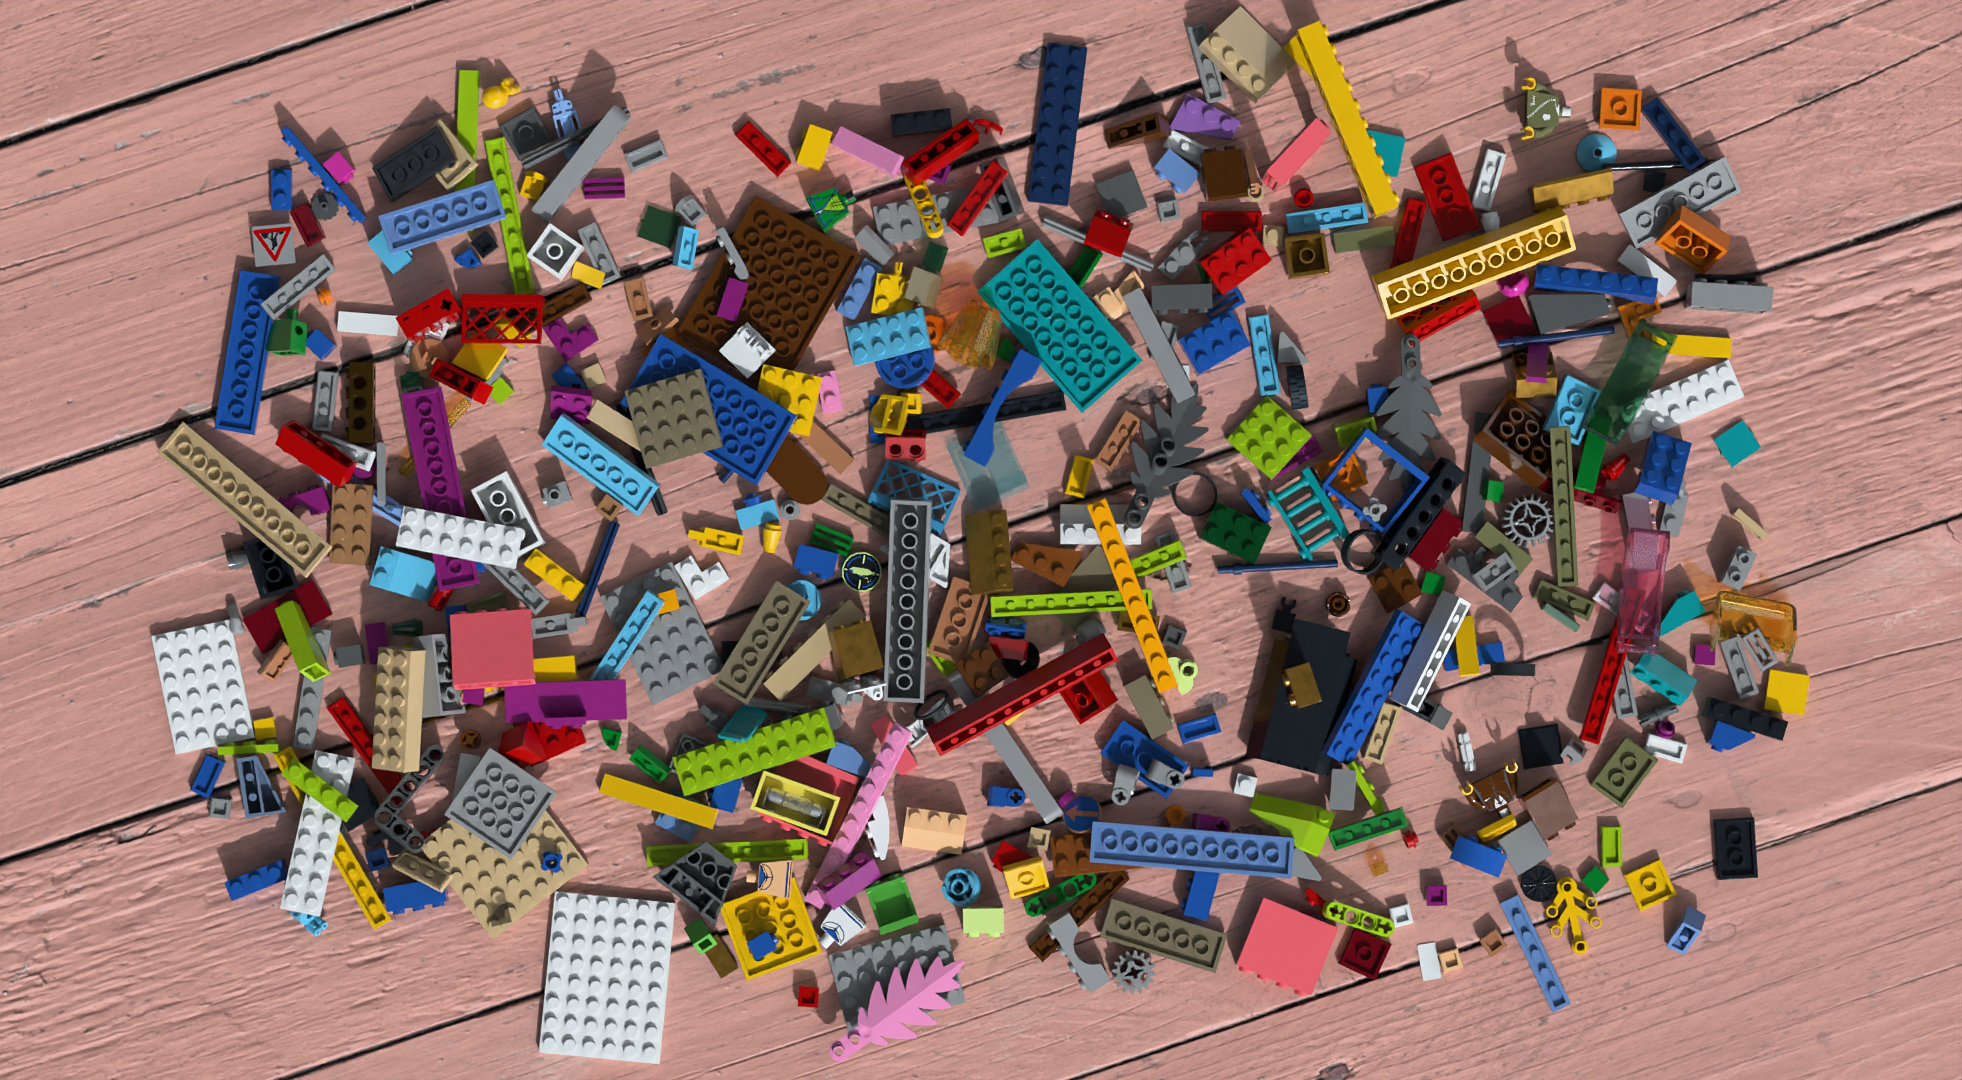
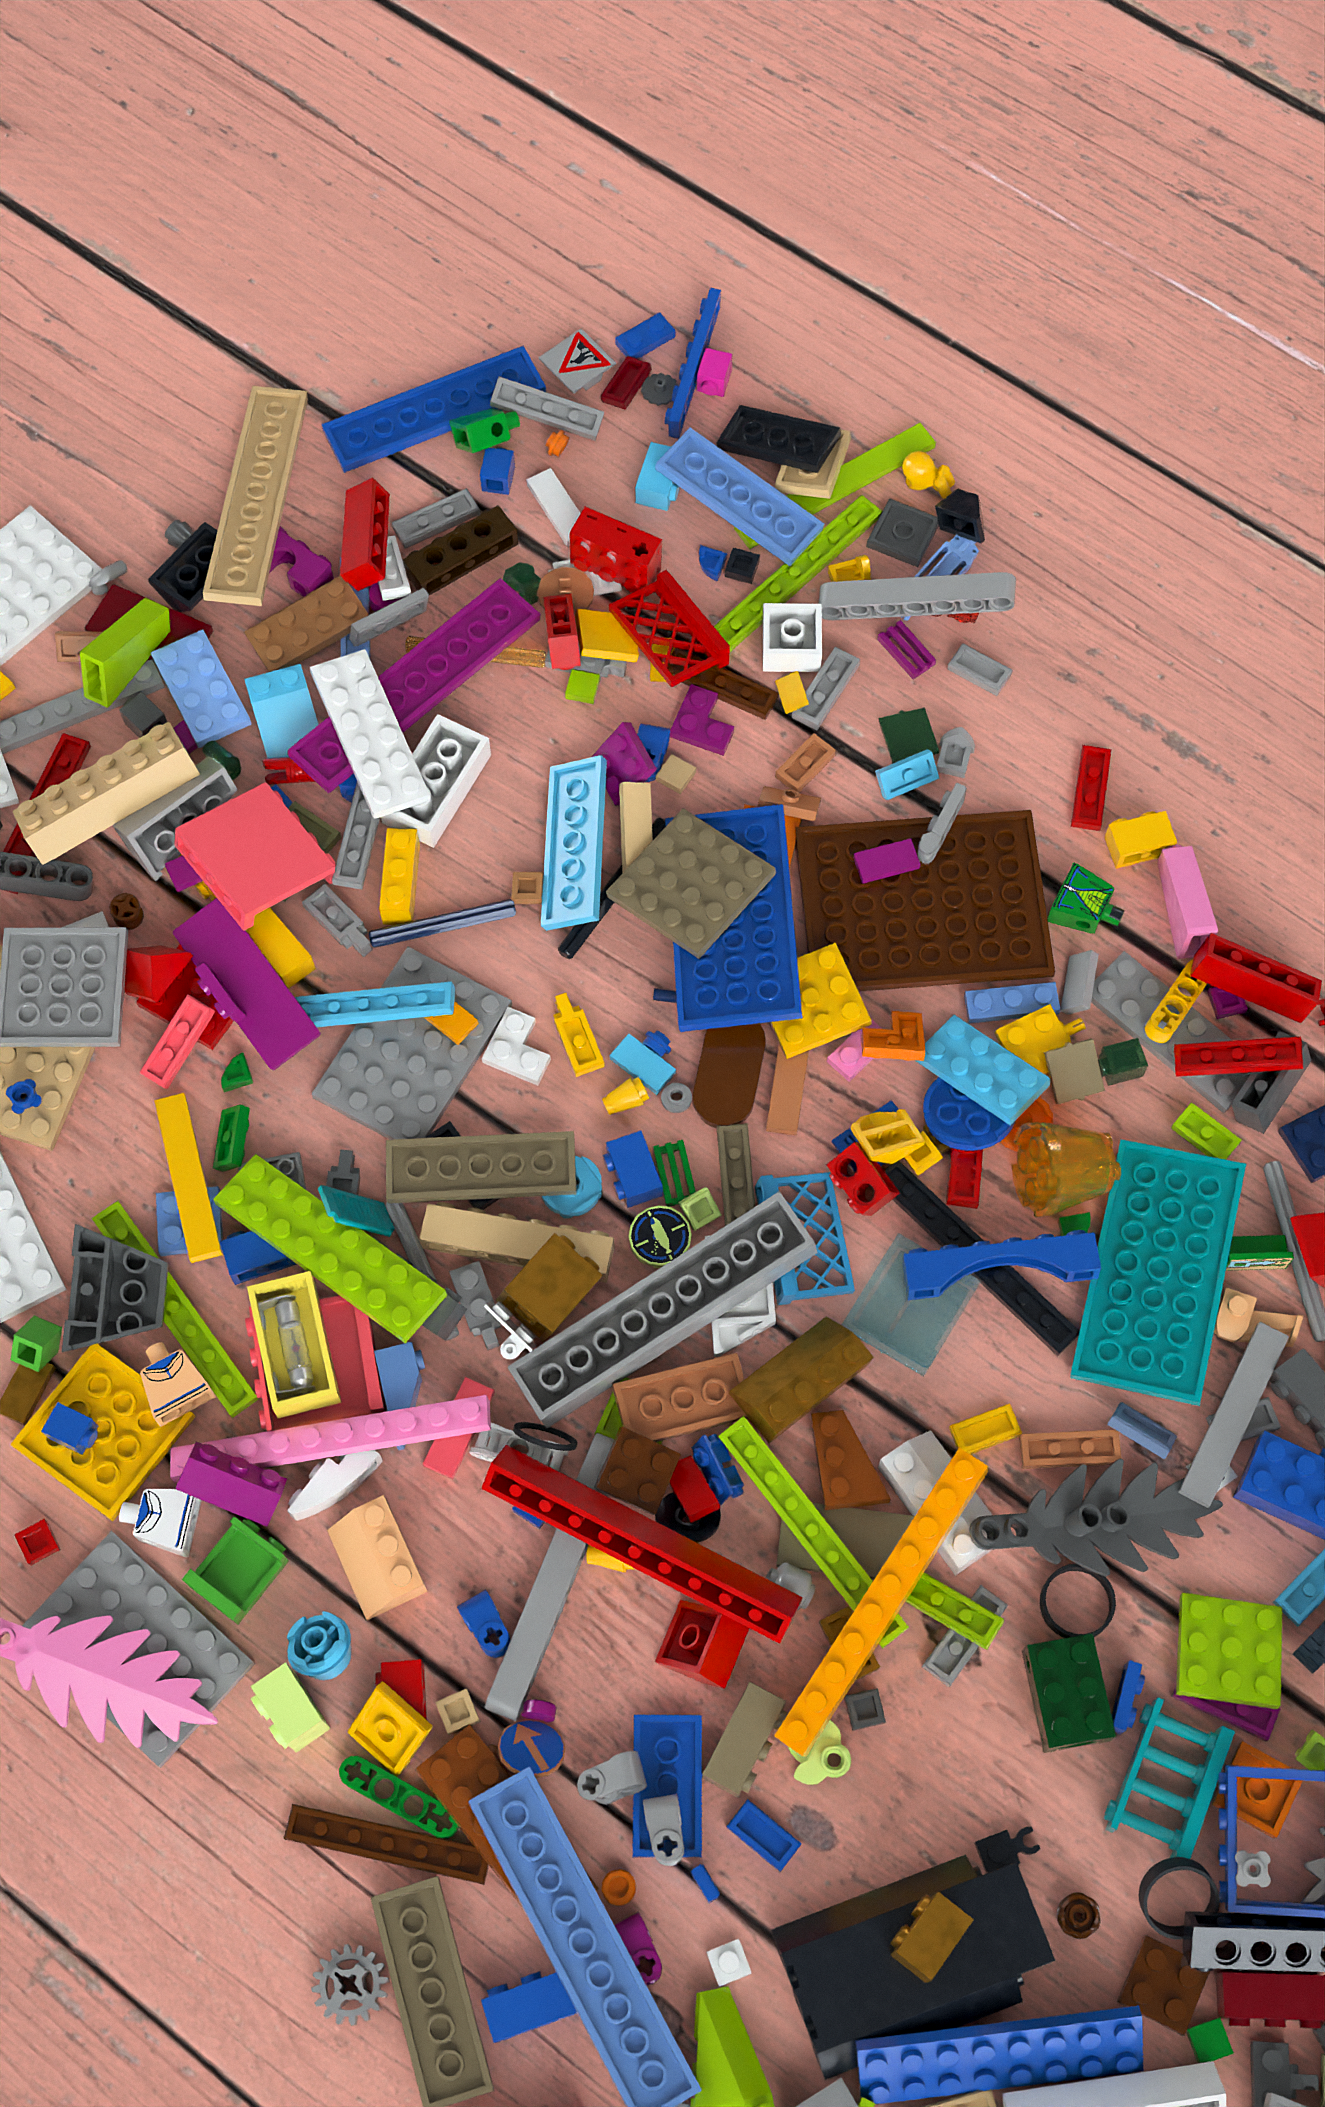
camera: 60 degrees right, 20 degrees down
(353, 611) = (201, 688): none -> light blue plate
(544, 94) = (961, 515): none -> black slope
(556, 495) = (501, 820): light grey brick -> none
(561, 144) = (917, 564): dark grey axle -> none
(572, 759) = (177, 1041): none -> coral tile
(747, 350) = (838, 915): white hinge -> none
(844, 368) = (901, 1042): none -> orange plate
(861, 540) = (700, 1208): none -> yellowish green tile
(921, 122) = (1269, 933): black brick -> none
(1091, 972) = (309, 1920): light grey arch -> none
(1134, 397) = (1142, 1430): none -> sand blue tile
(1238, 568) = (1022, 1734): dark blue bar -> none

